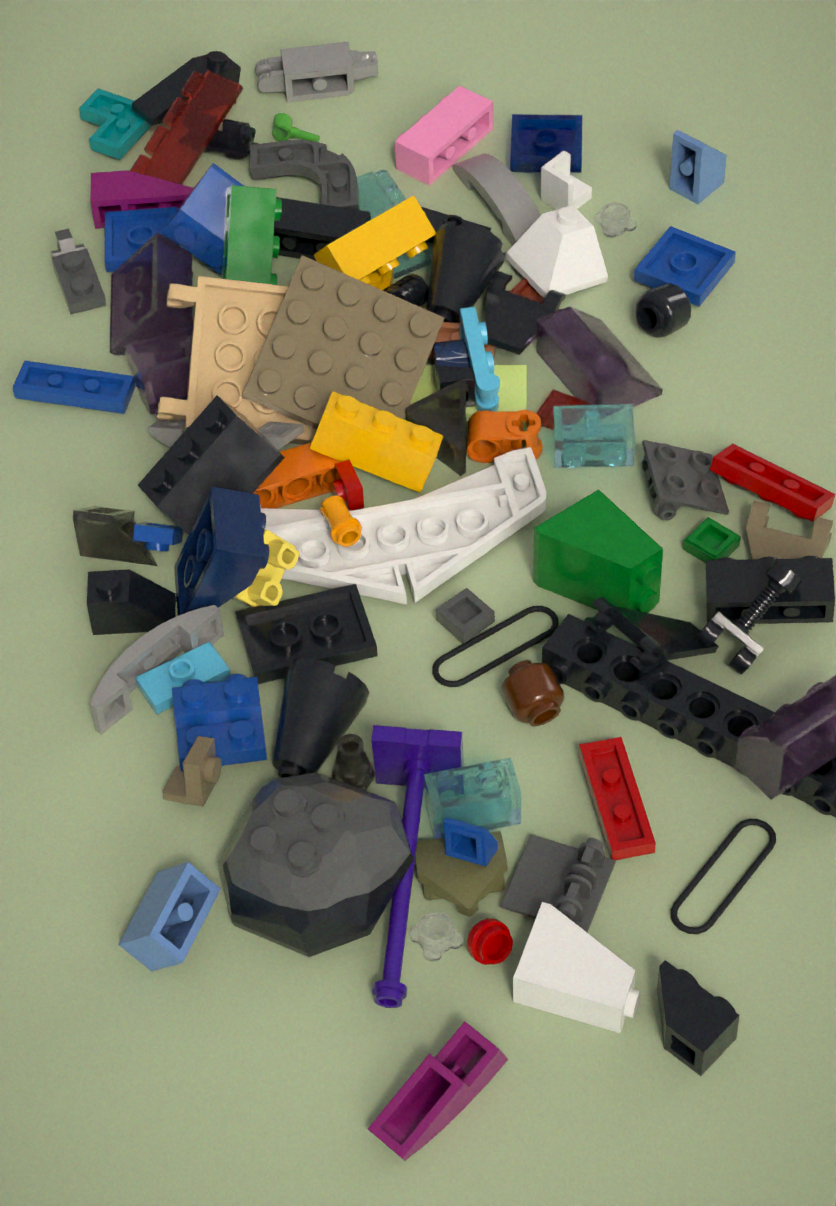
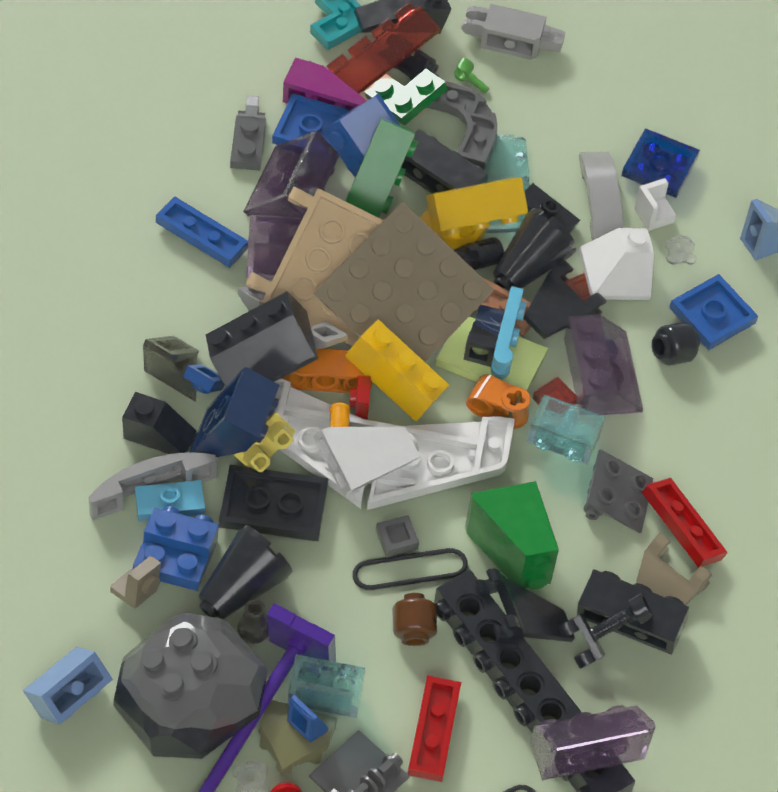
camera: 15 degrees right, 5 degrees up
(245, 165) = (411, 99): none -> plate
(387, 536) = (365, 453): none -> white slope
(444, 135) = (583, 125): bright pink brick -> none
(447, 415) = (461, 371): clear smoke slope -> none
(711, 541) = (614, 552): green tile -> none

